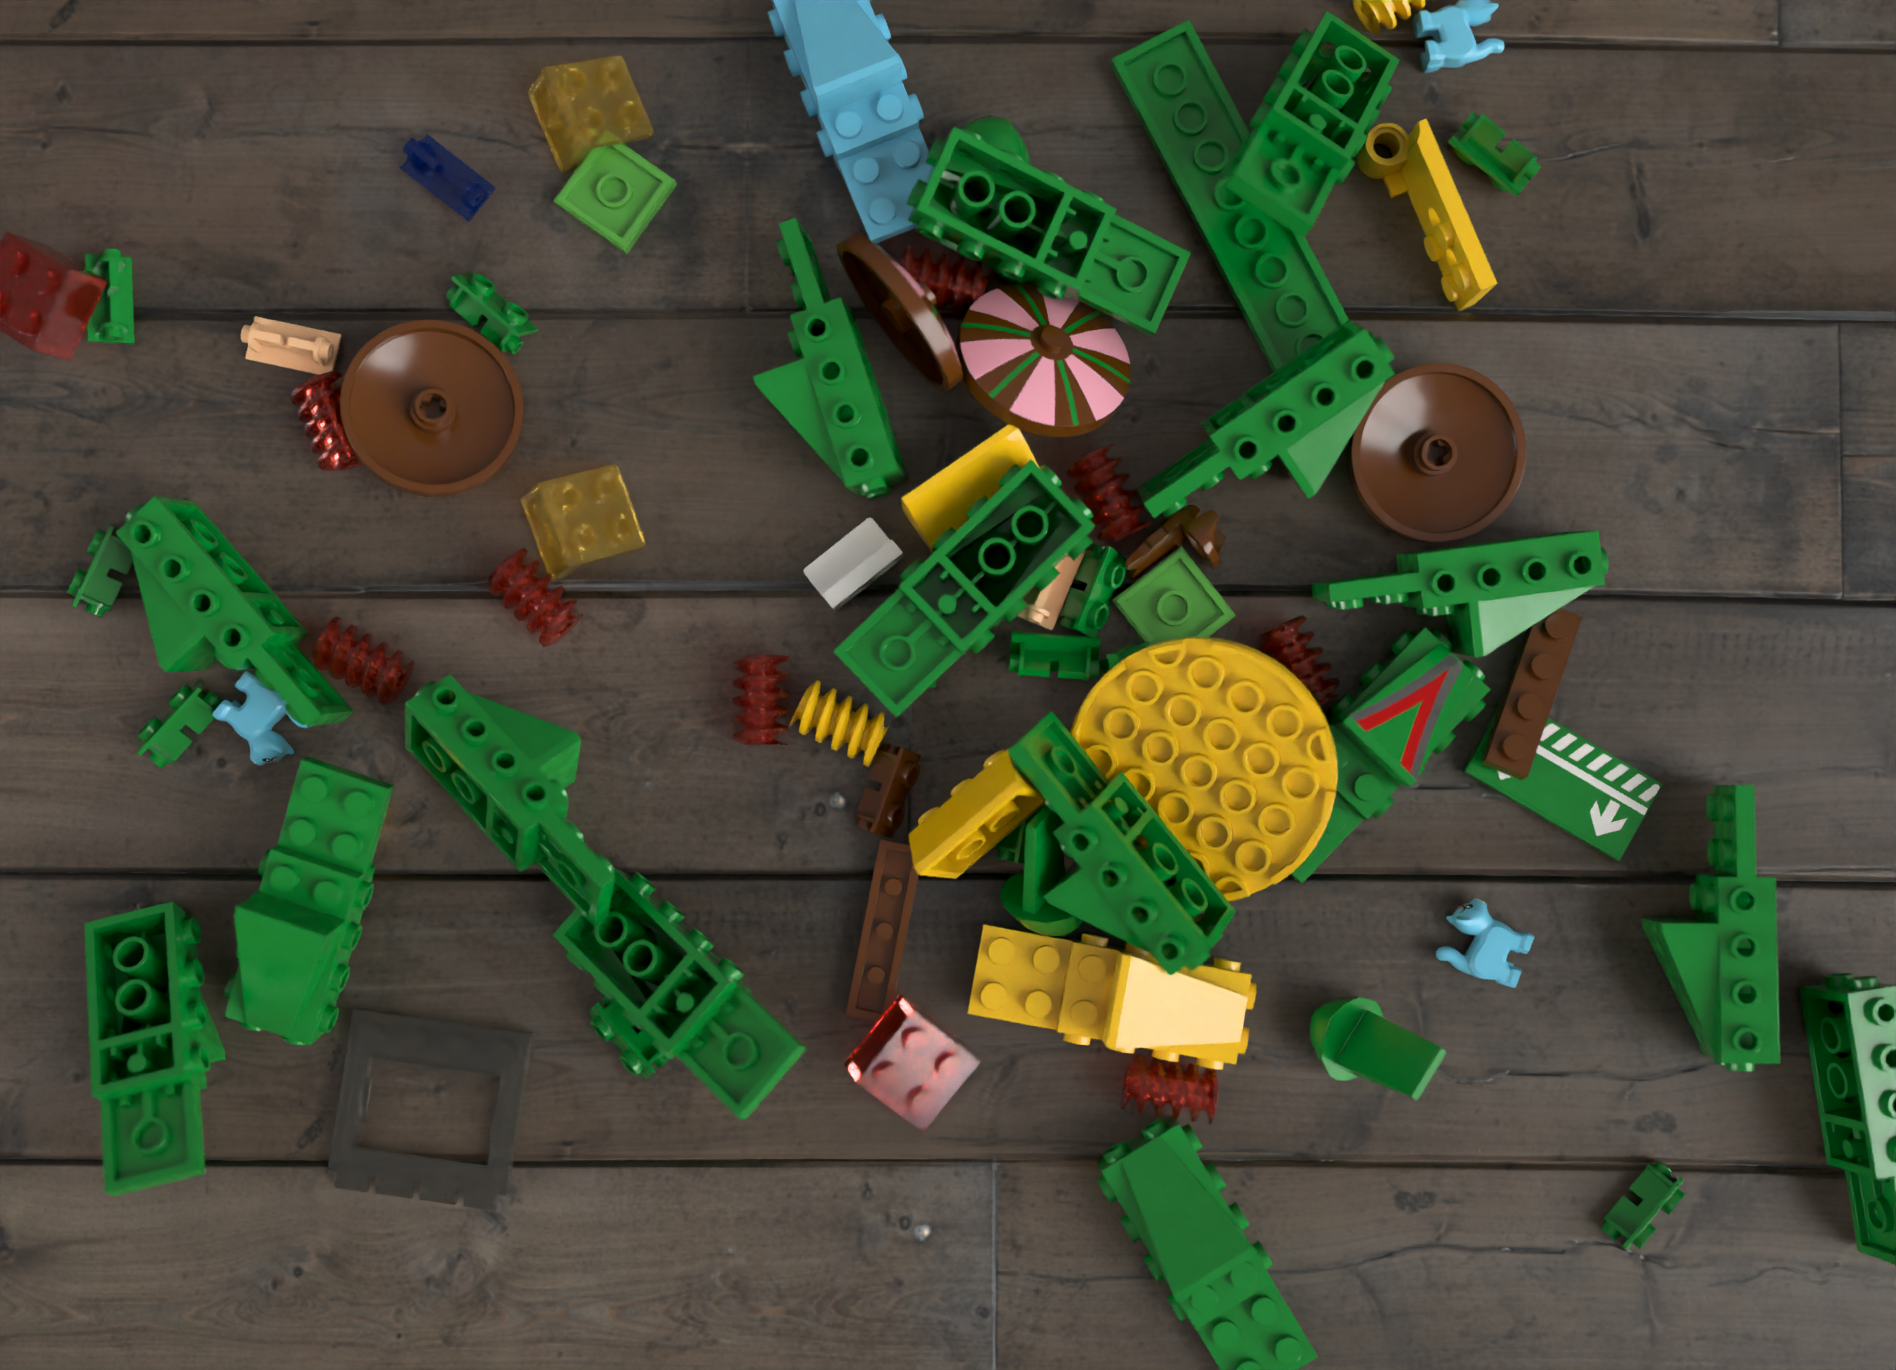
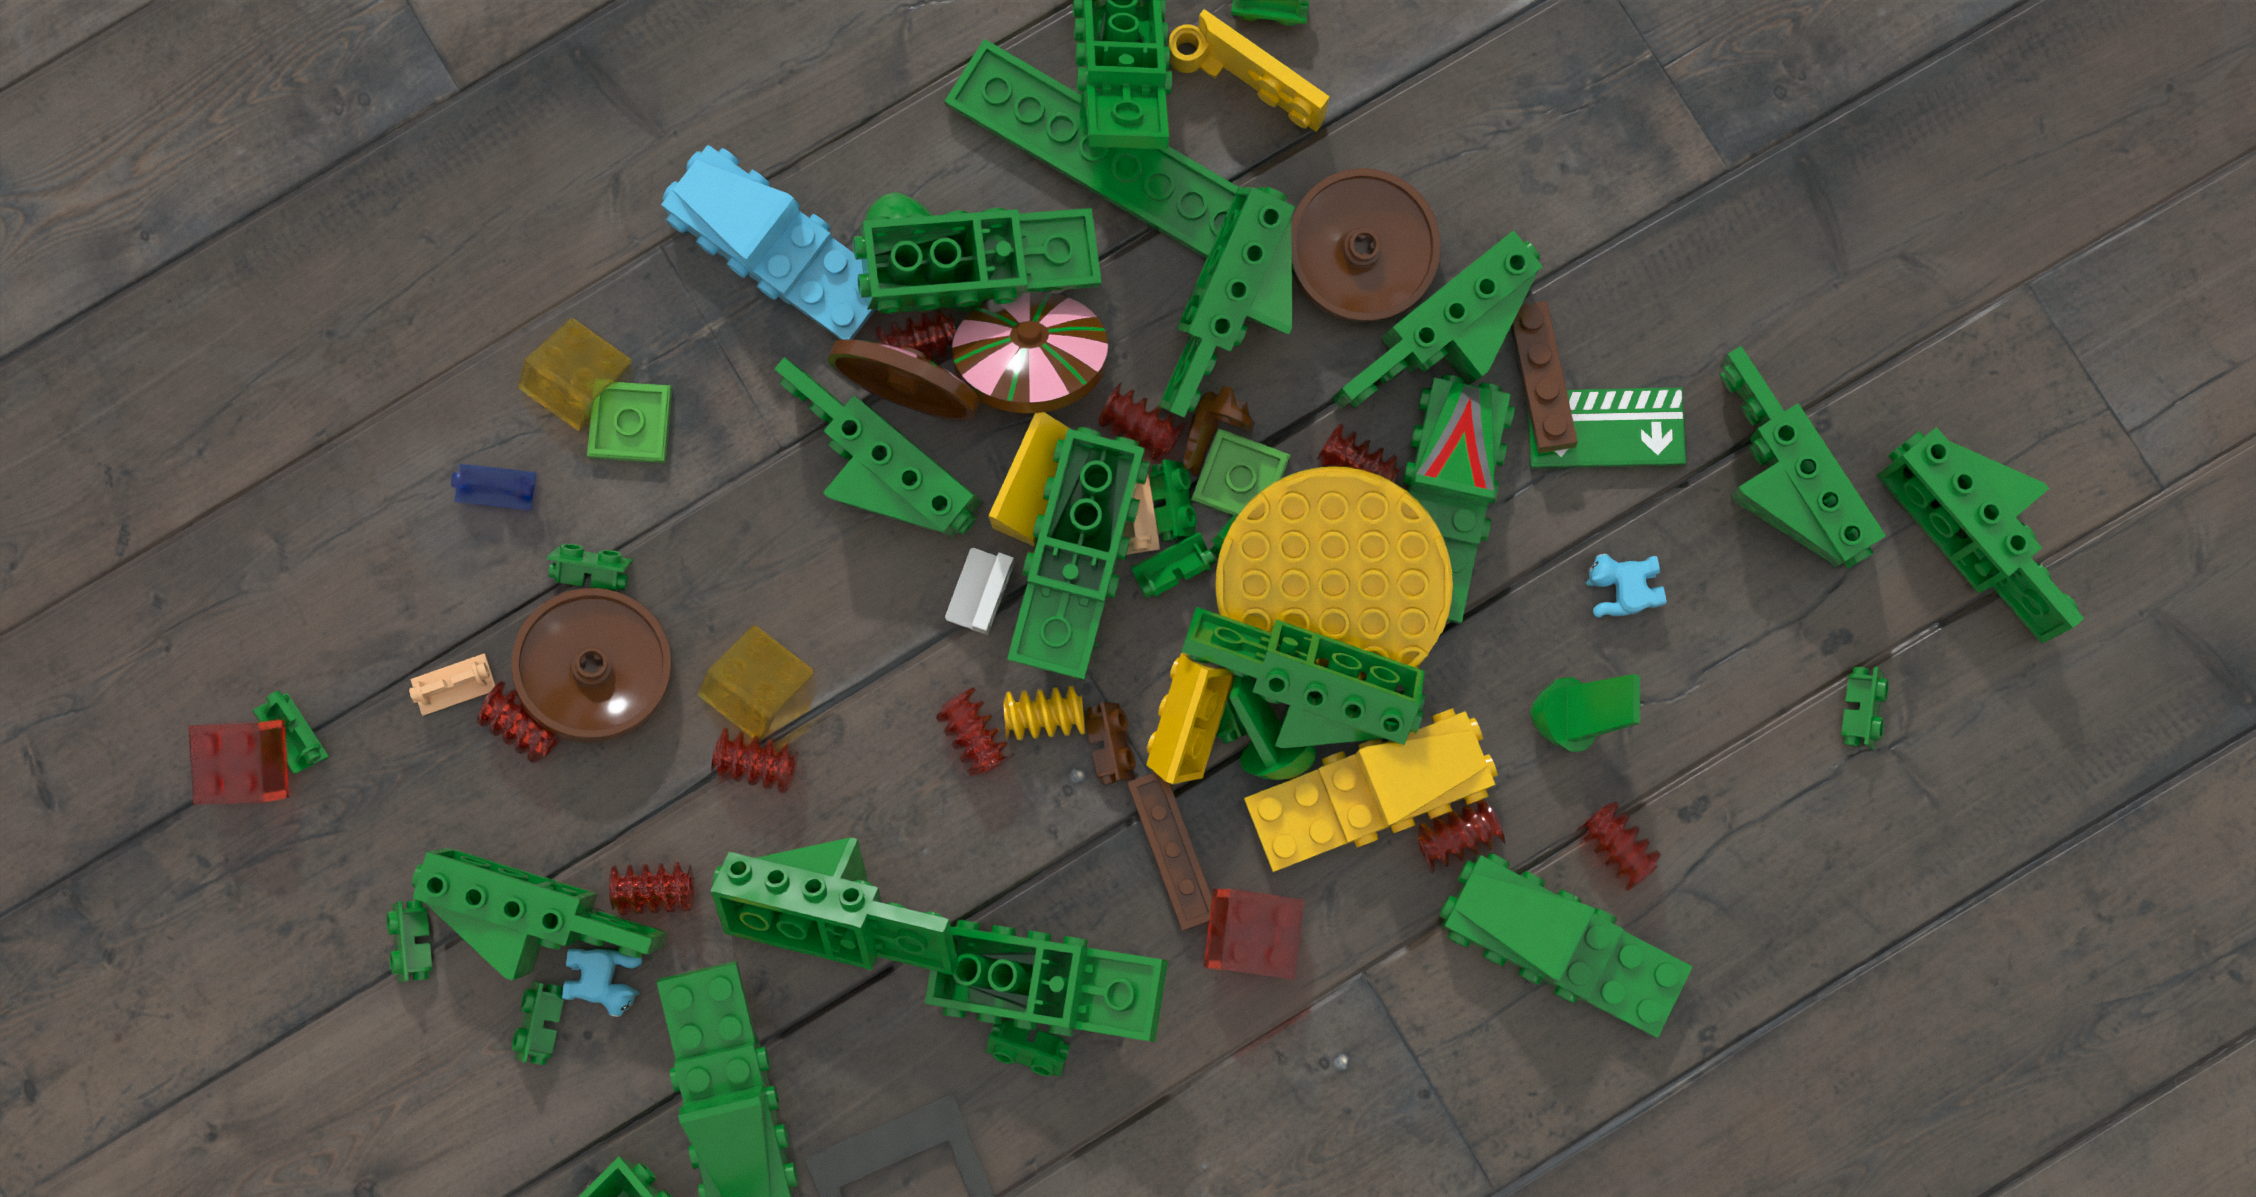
camera: 25 degrees left, 5 degrees down
(1323, 1194) = (1620, 844): none -> clear red piece

